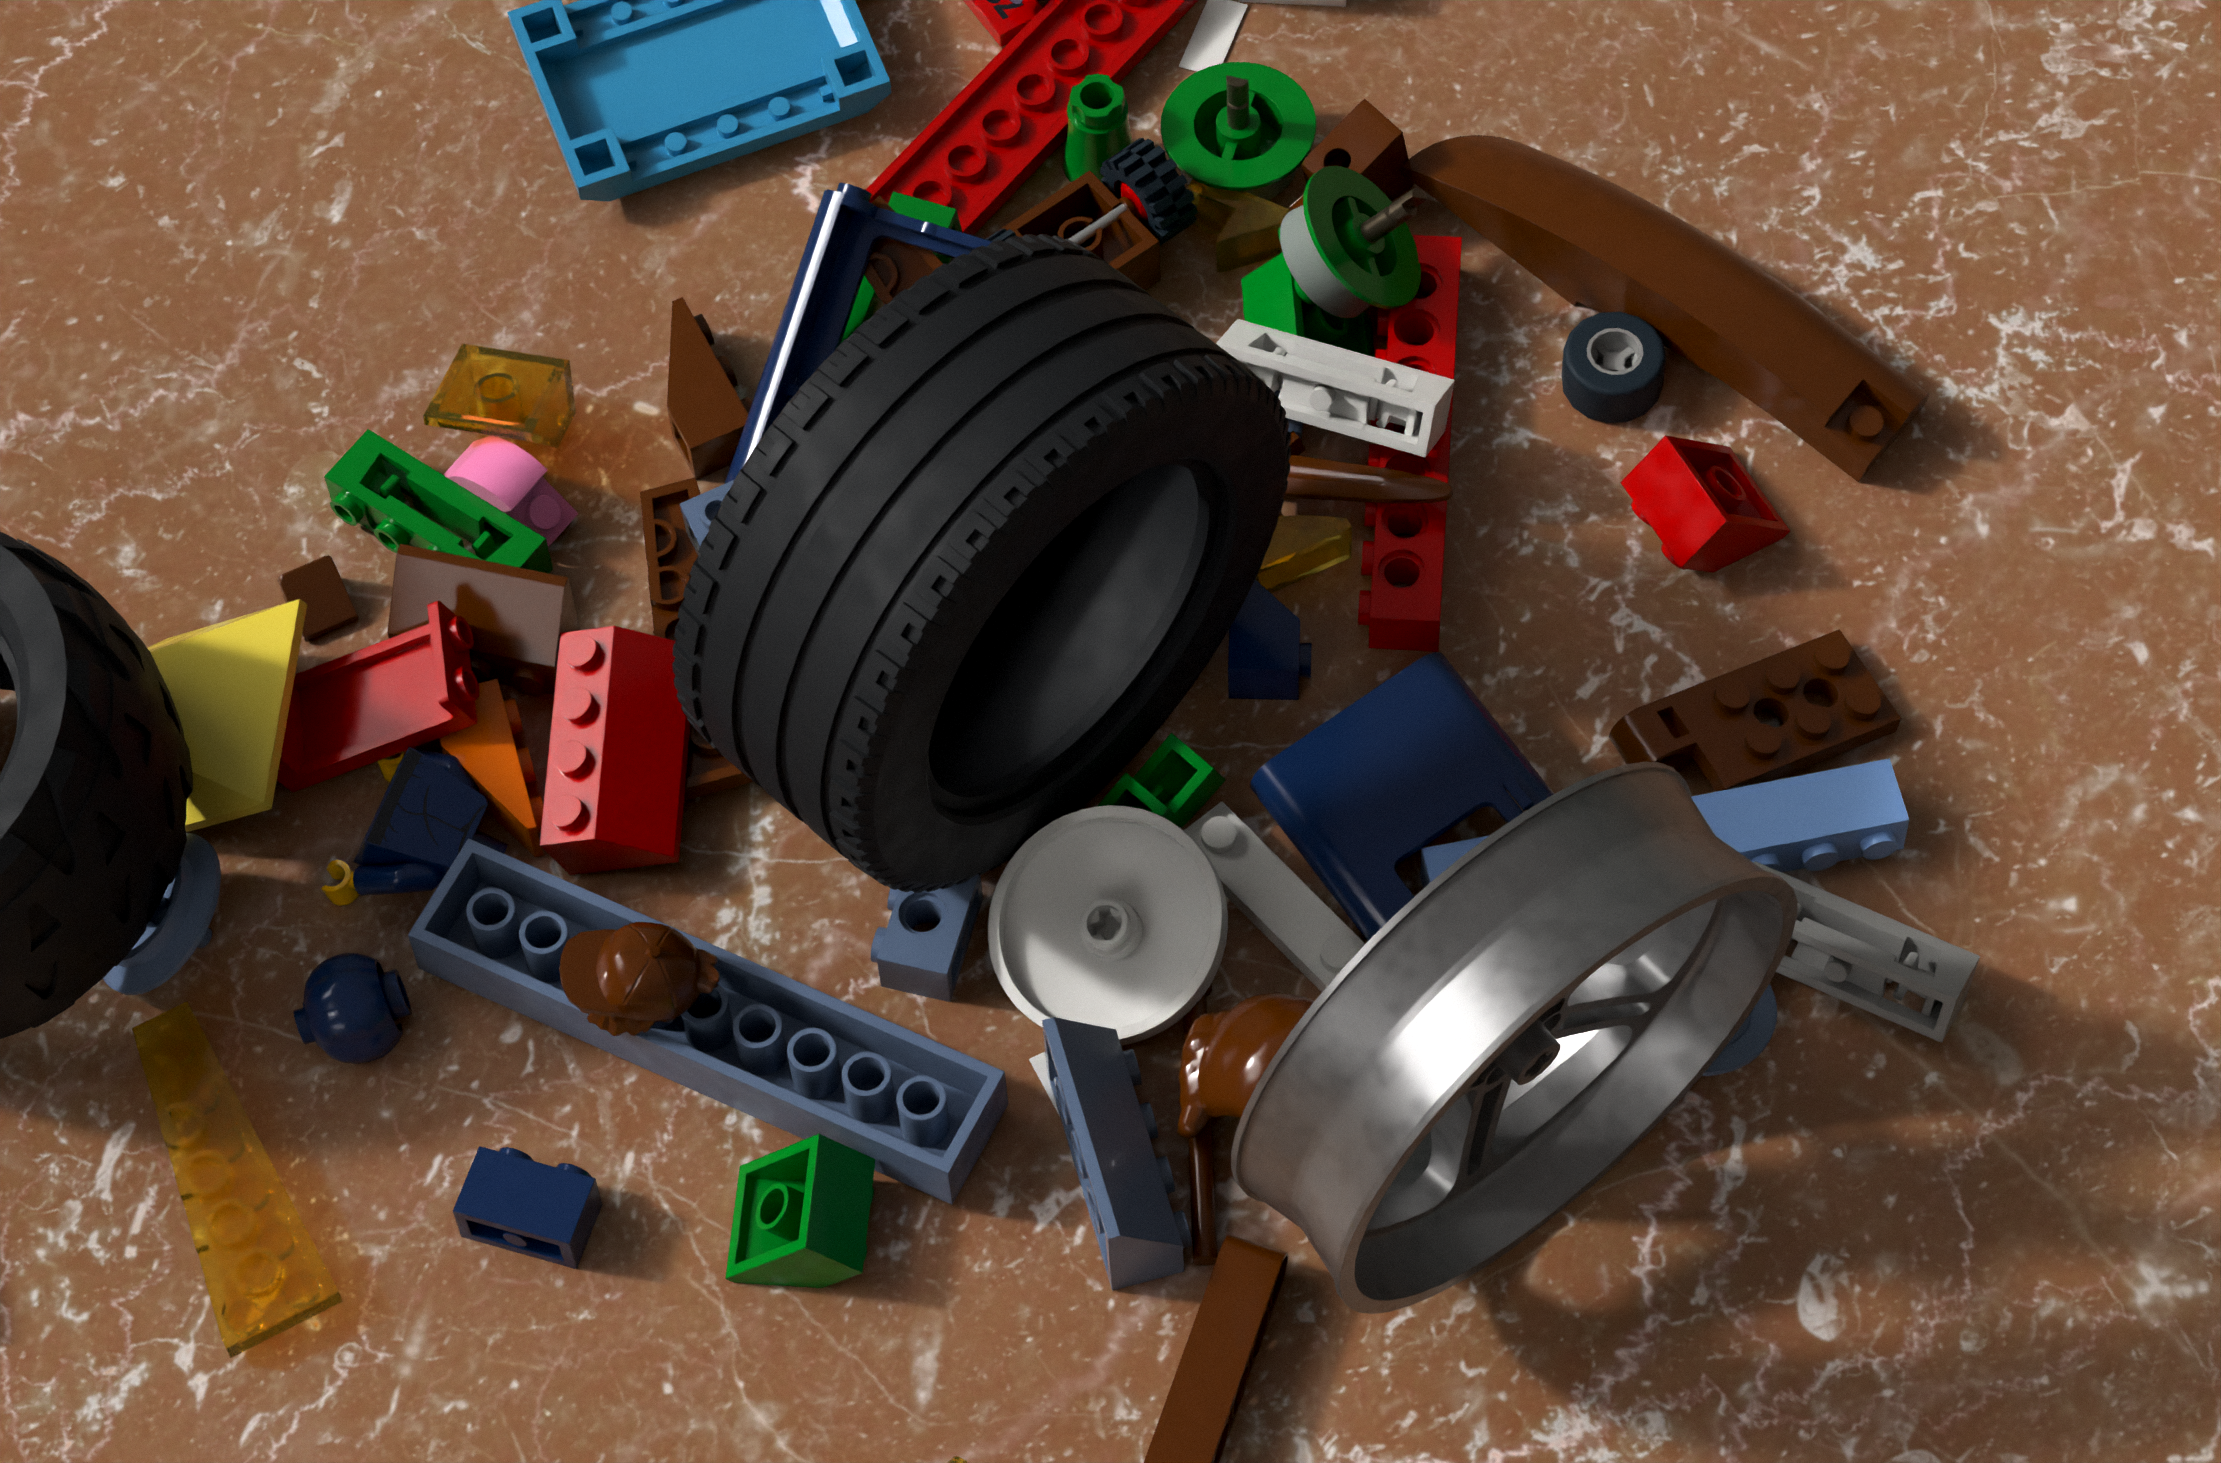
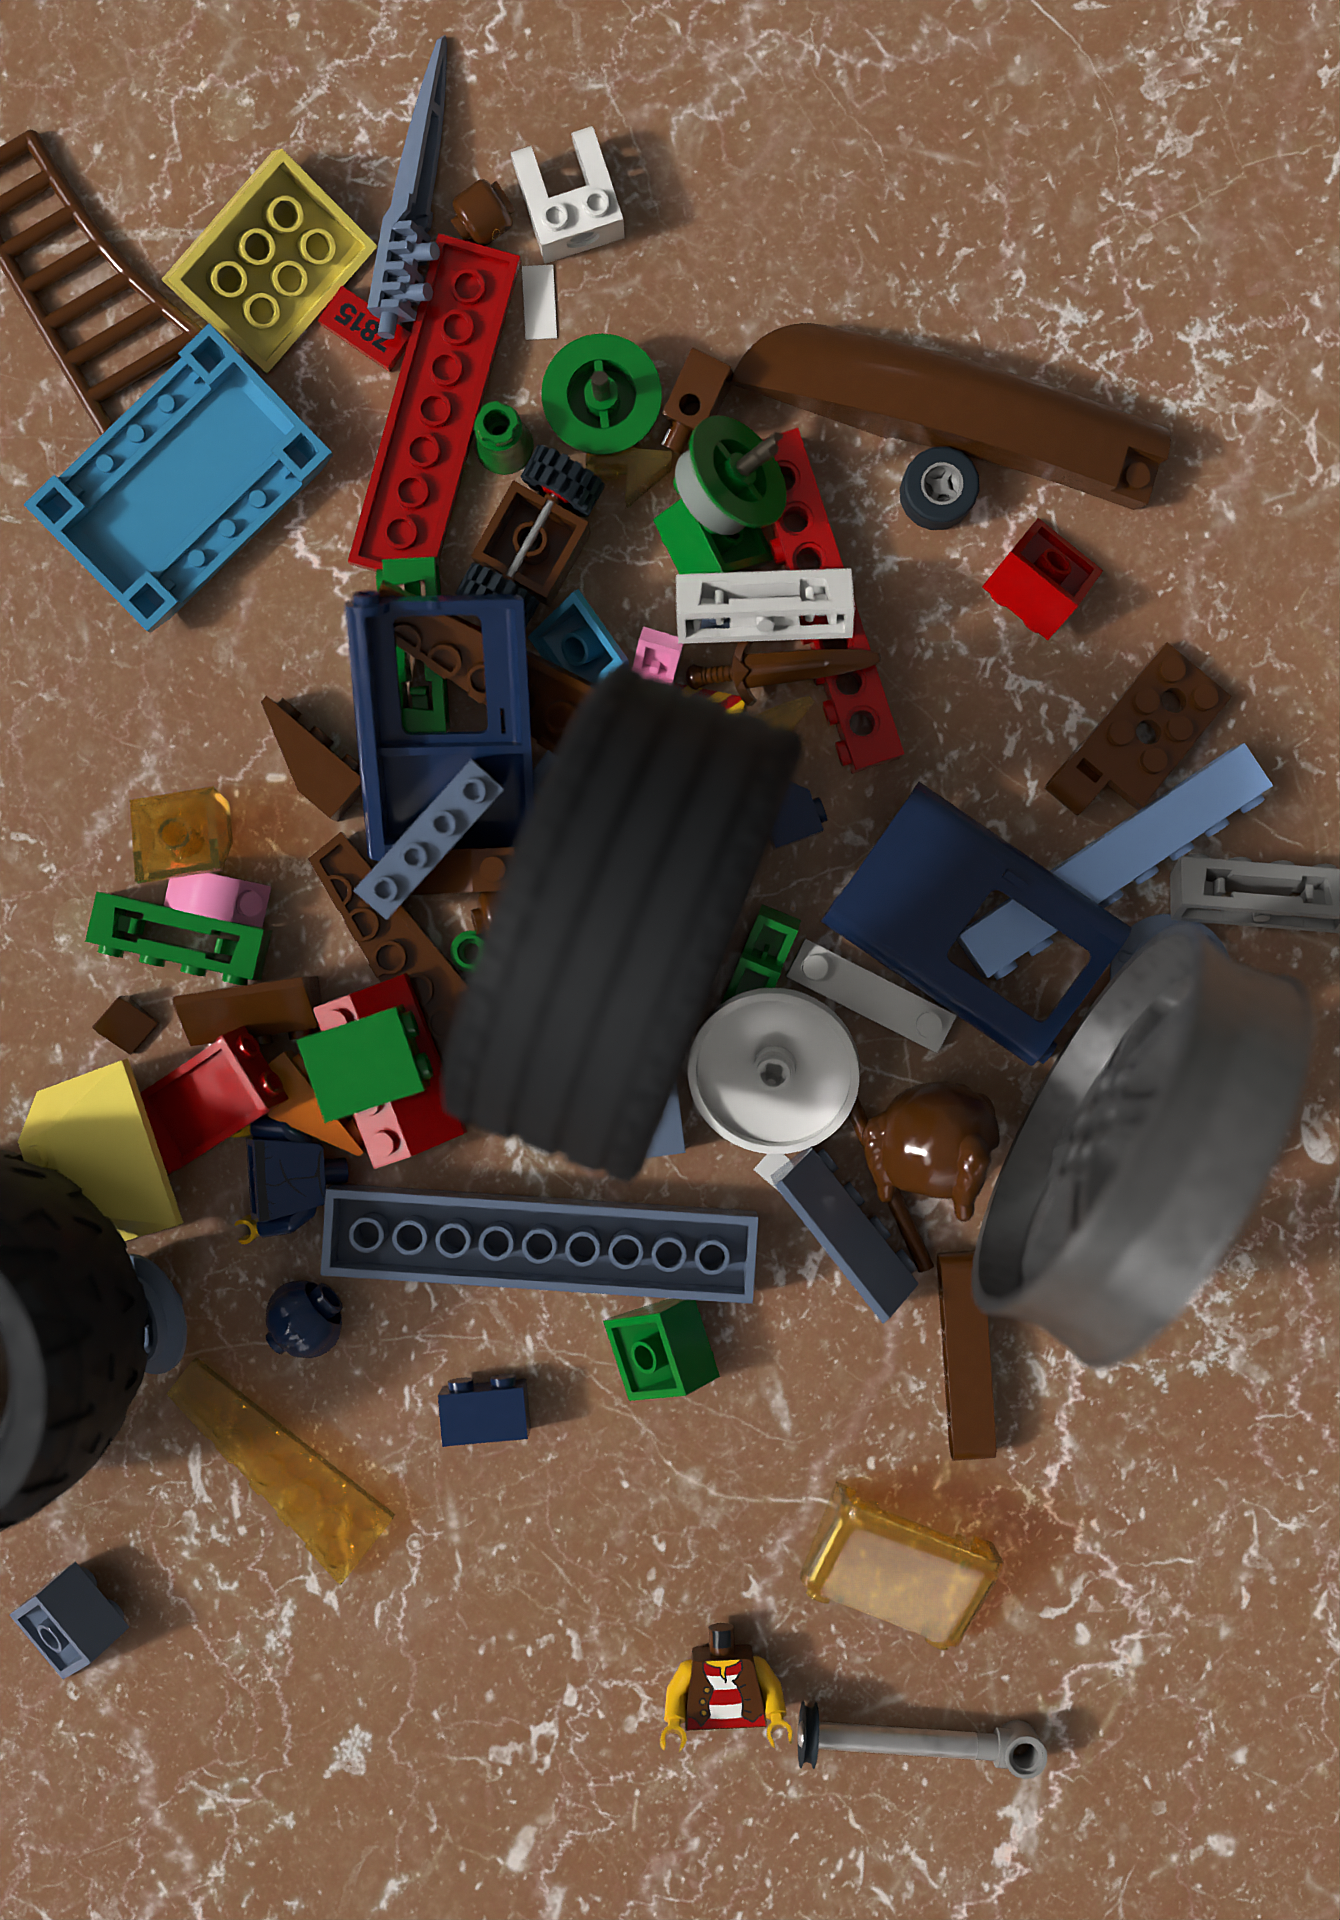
camera: 25 degrees left, 30 degrees up
(593, 703) = (365, 1063): none -> green panel
(635, 975) = (490, 1259): reddish brown hair -> none

